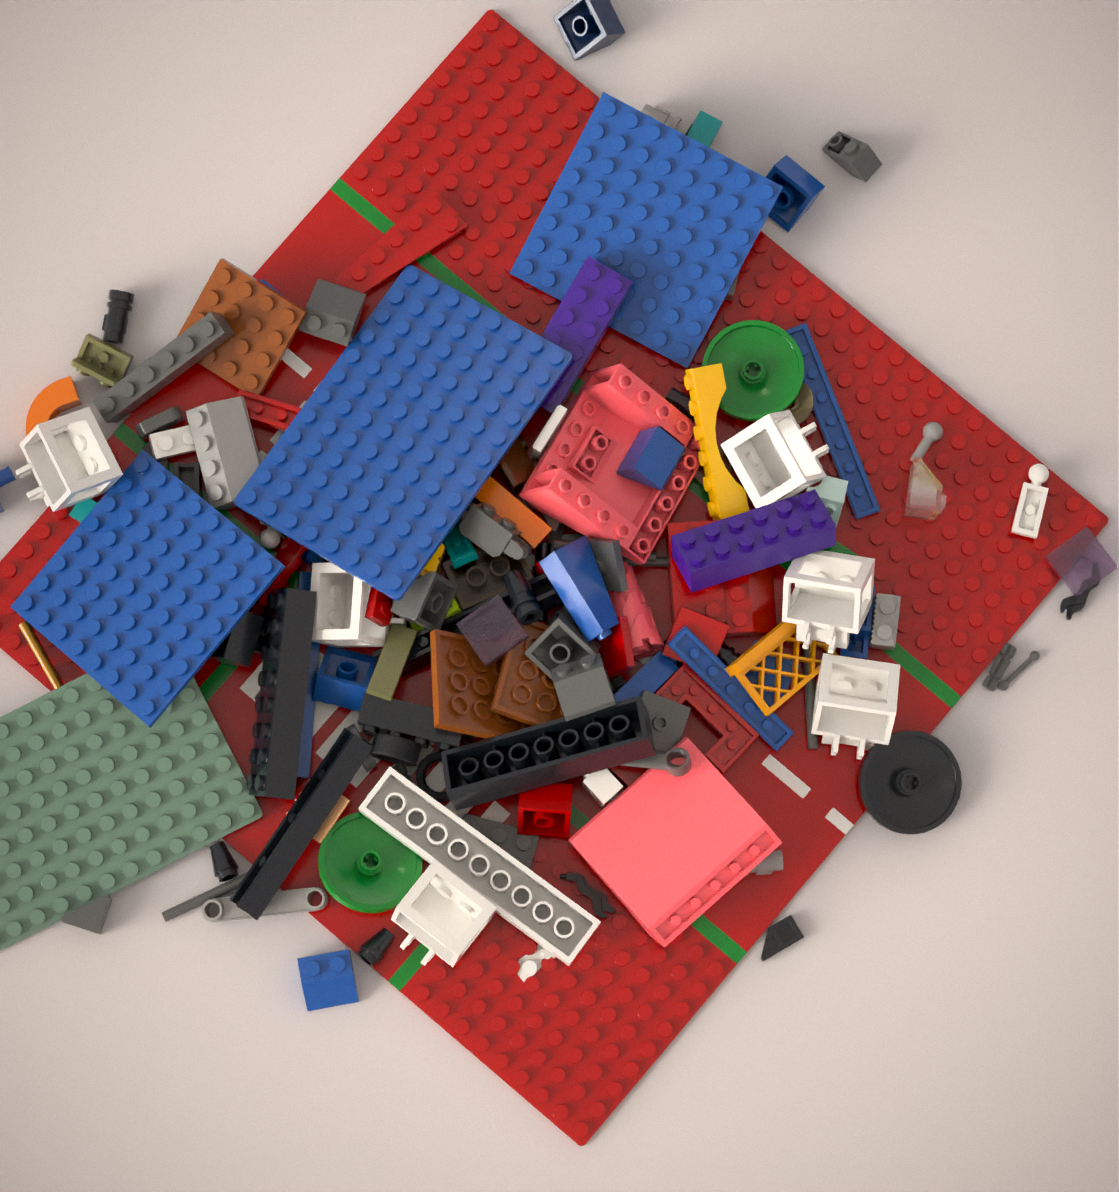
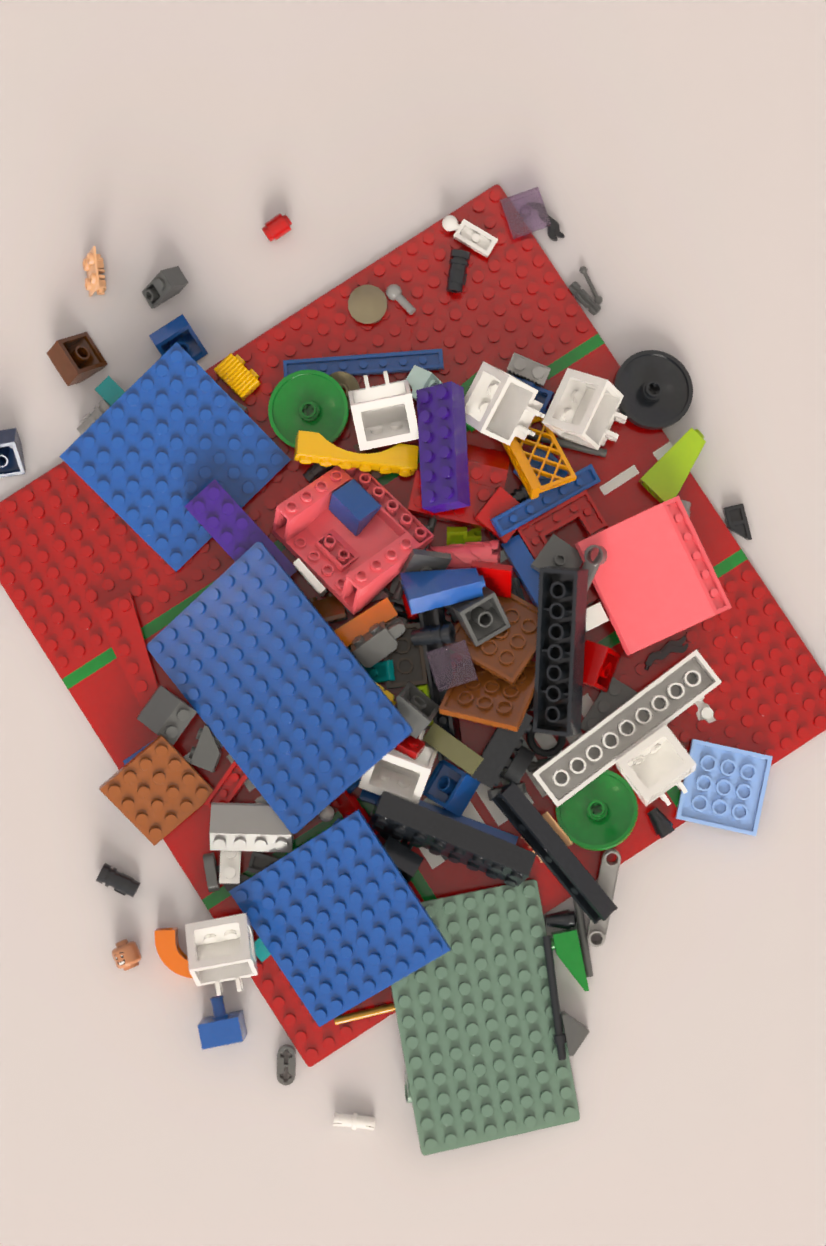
camera: 65 degrees left, 5 degrees up
(32, 352) = (126, 954): none -> nougat head
(80, 898) = (559, 1037): none -> black bar
(102, 361) = (149, 902): olive bracket -> none
(163, 367) = (170, 857): dark grey brick -> none
(186, 882) = (568, 949): none -> green slope
(302, 373) = (207, 752): none -> dark grey slope
(328, 980) = (672, 866): blue slope -> none
(443, 1013) = (724, 788): none -> light blue plate
(583, 686) = (518, 609): dark grey slope -> none
(656, 599) = (459, 535): none -> lime plate
(732, 78) = (76, 358): none -> reddish brown slope
(768, 274) = (237, 376): none -> yellow brick
(817, 834) = (670, 472): none -> lime slope
(852, 59) = (94, 266): none -> light nougat hinge
(907, 404) = (367, 304): none -> dark tan dish
(923, 492) = (439, 311): clear slope -> none
(968, 267) = (277, 227): none -> brick
(979, 500) = (457, 273): none -> black axle

